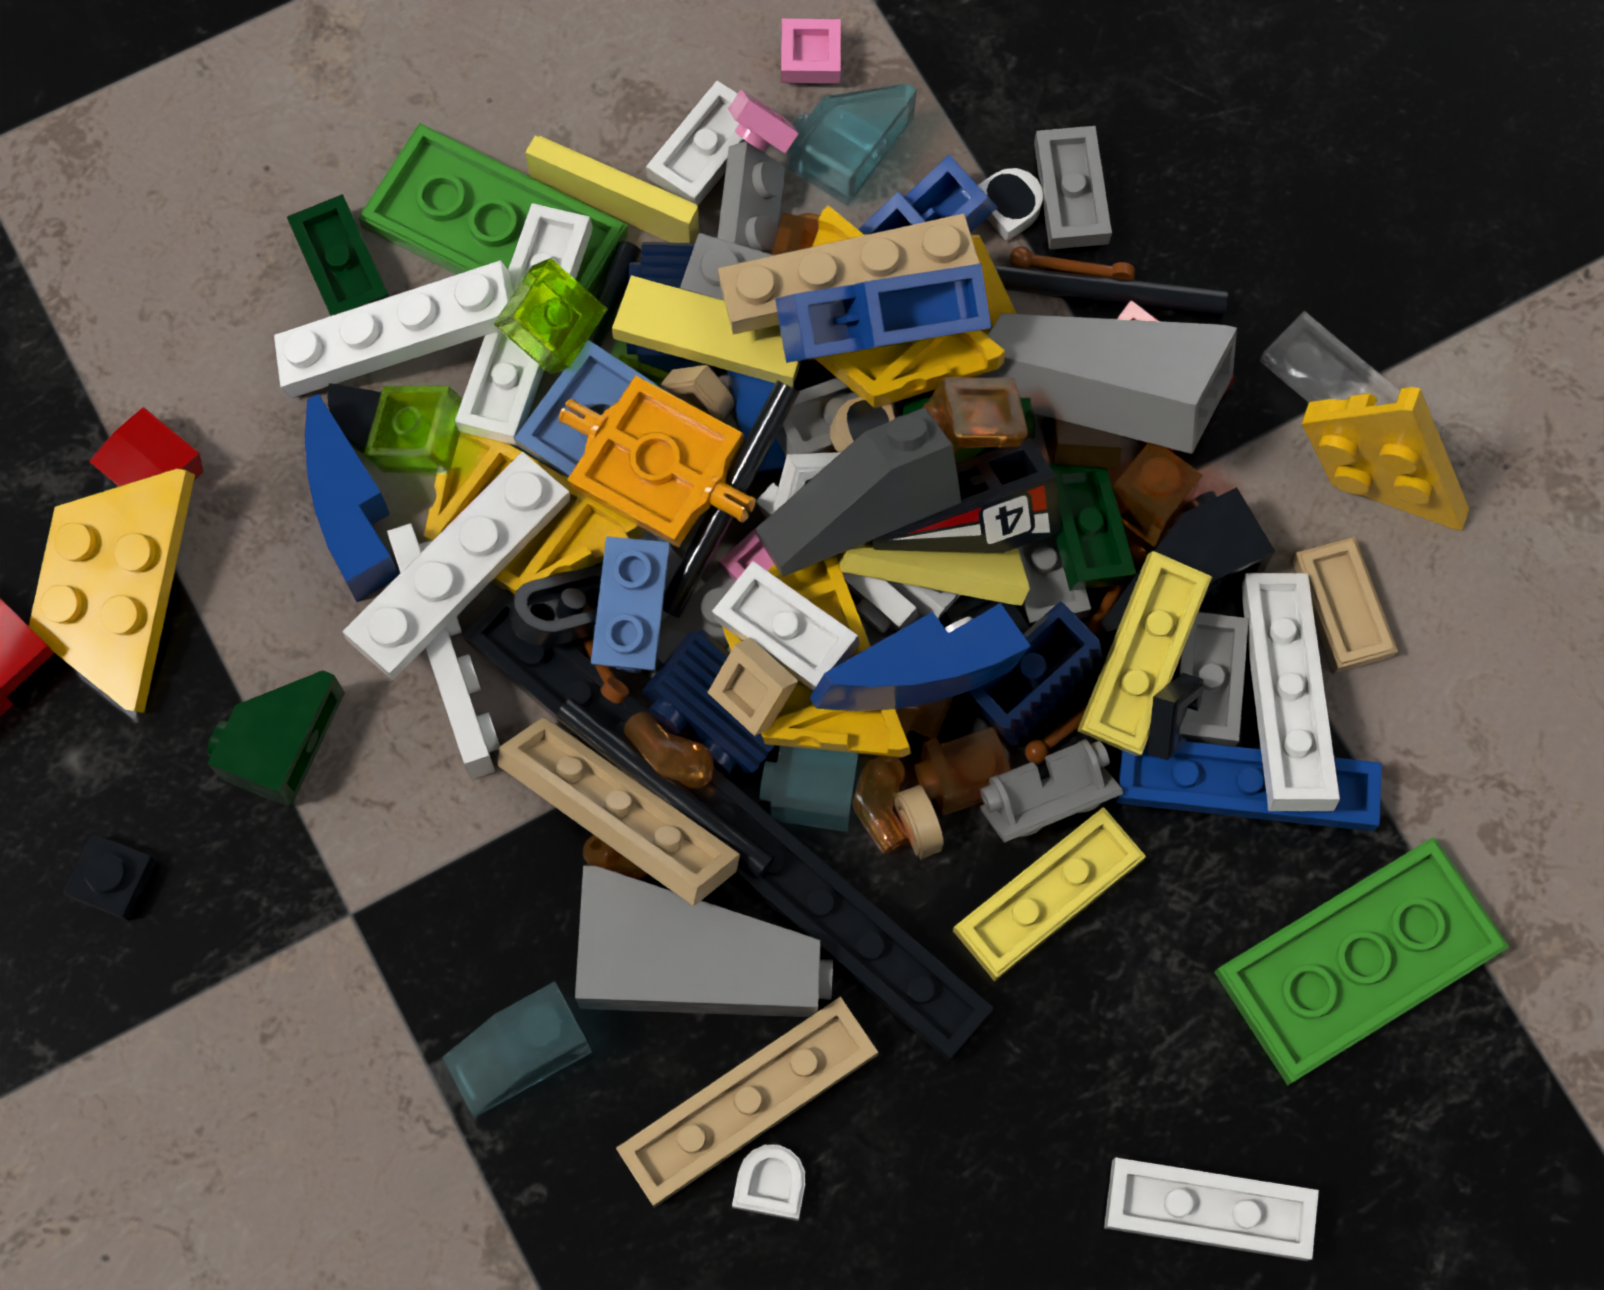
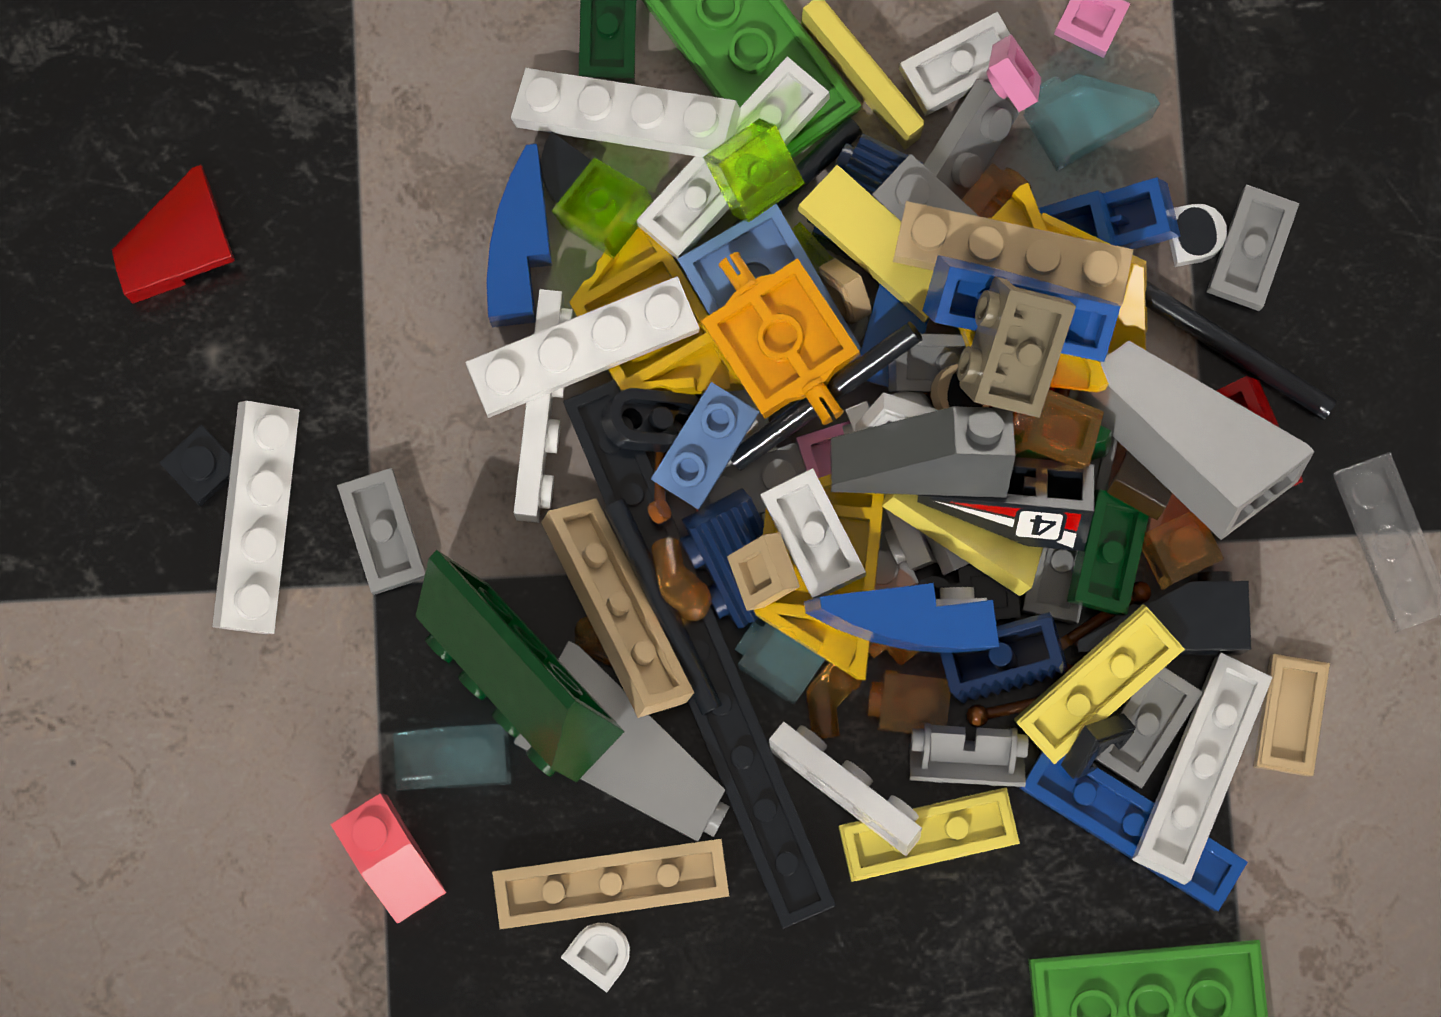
camera: 25 degrees right, 10 degrees up
(112, 580) = (304, 223): yellow wing -> none
(143, 450) = (376, 132): red piece -> none
(193, 902) = (256, 518): none -> white plate
(275, 737) = (377, 415): dark green slope -> none
(334, 852) = (382, 531): none -> light grey plate
(497, 1187) = (388, 857): none -> coral slope
(538, 917) = (514, 670): none -> dark green slope
(897, 343) = (1014, 347): none -> dark tan bracket
(919, 821) = (853, 727): tan tile -> none
(943, 879) = (846, 786): none -> white plate
(1024, 258) = (1179, 290): dark orange hinge -> none
(1387, 454) = (1387, 618): yellow wing -> none

